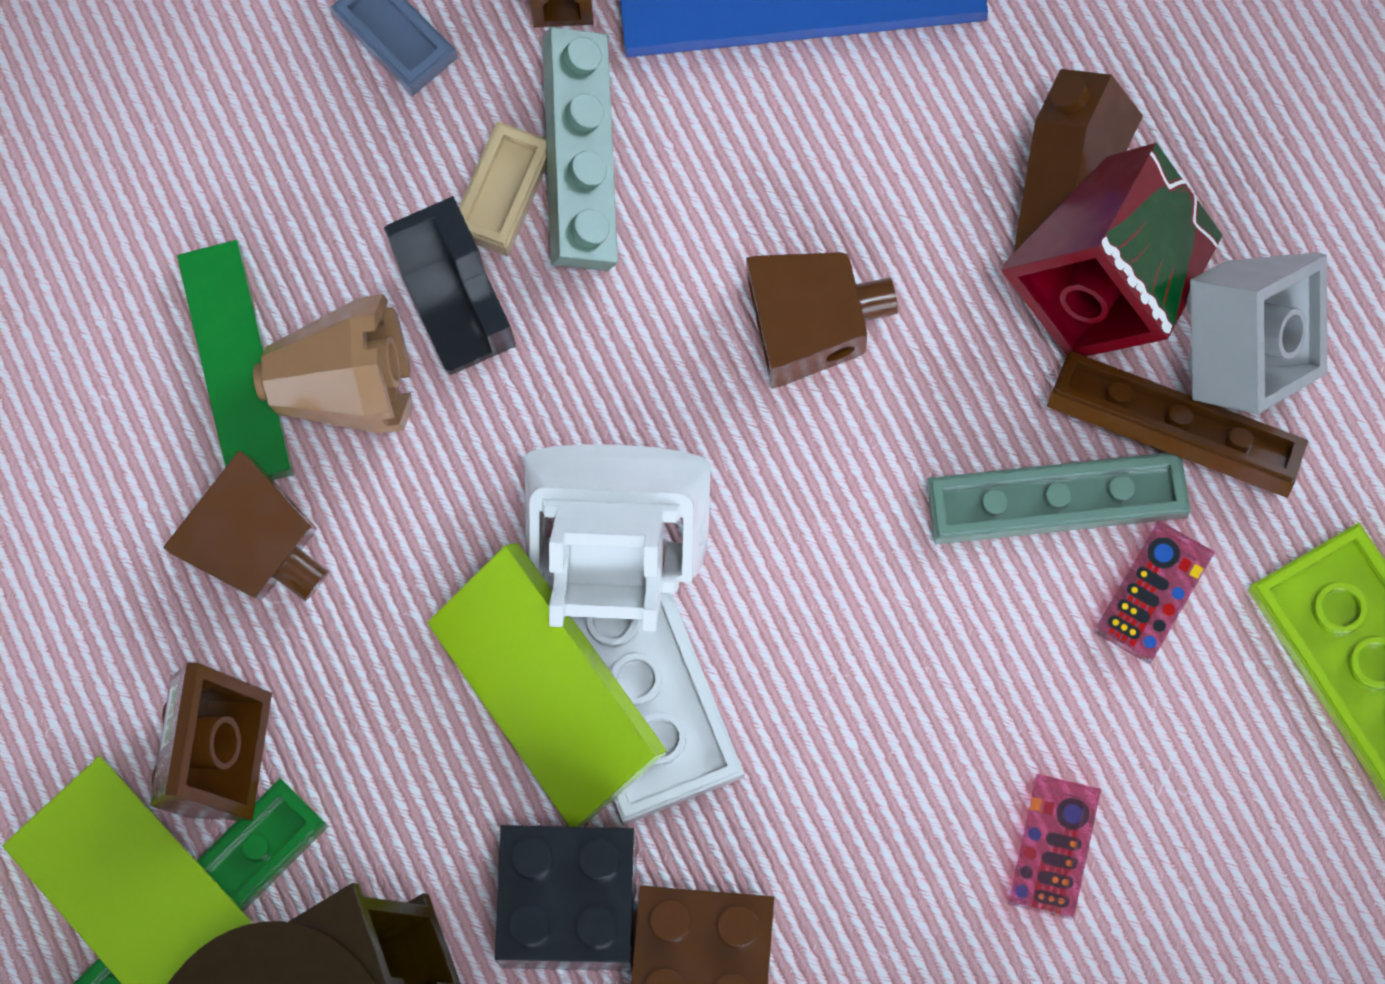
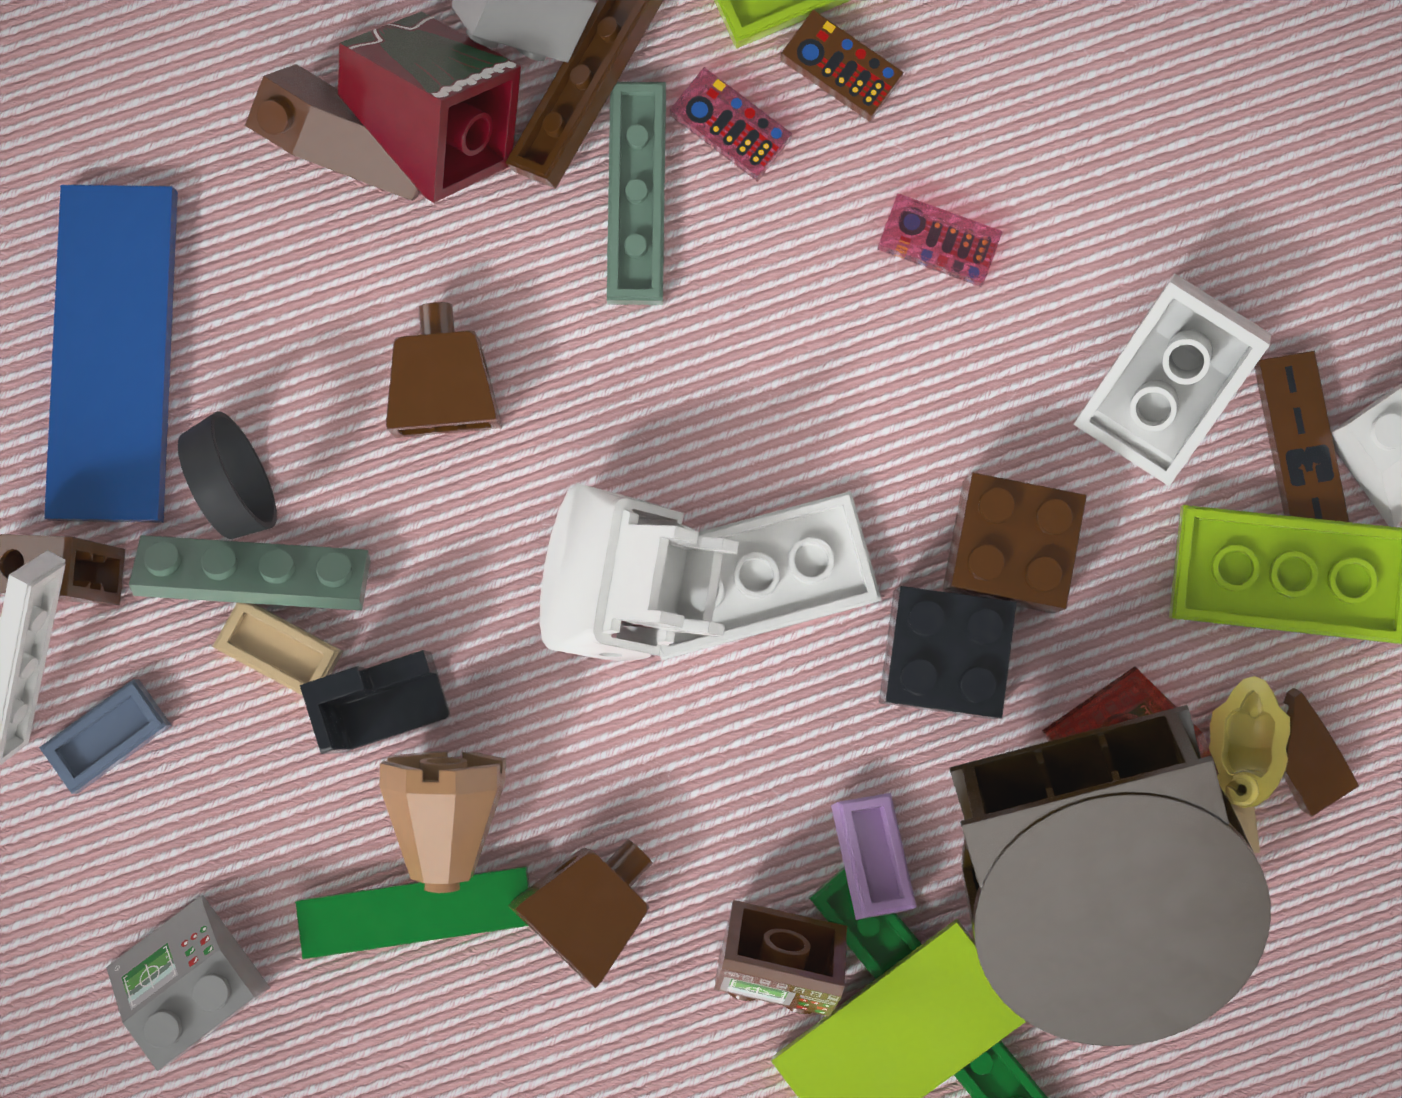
camera: 90 degrees left, 10 degrees up
(143, 142) = (183, 983): none -> light grey slope
(332, 842) = (873, 856): none -> lavender tile
(546, 687) = (767, 652): lime tile -> none
(689, 125) = (227, 477): none -> black tyre
(1244, 710) = (841, 65): none -> tile

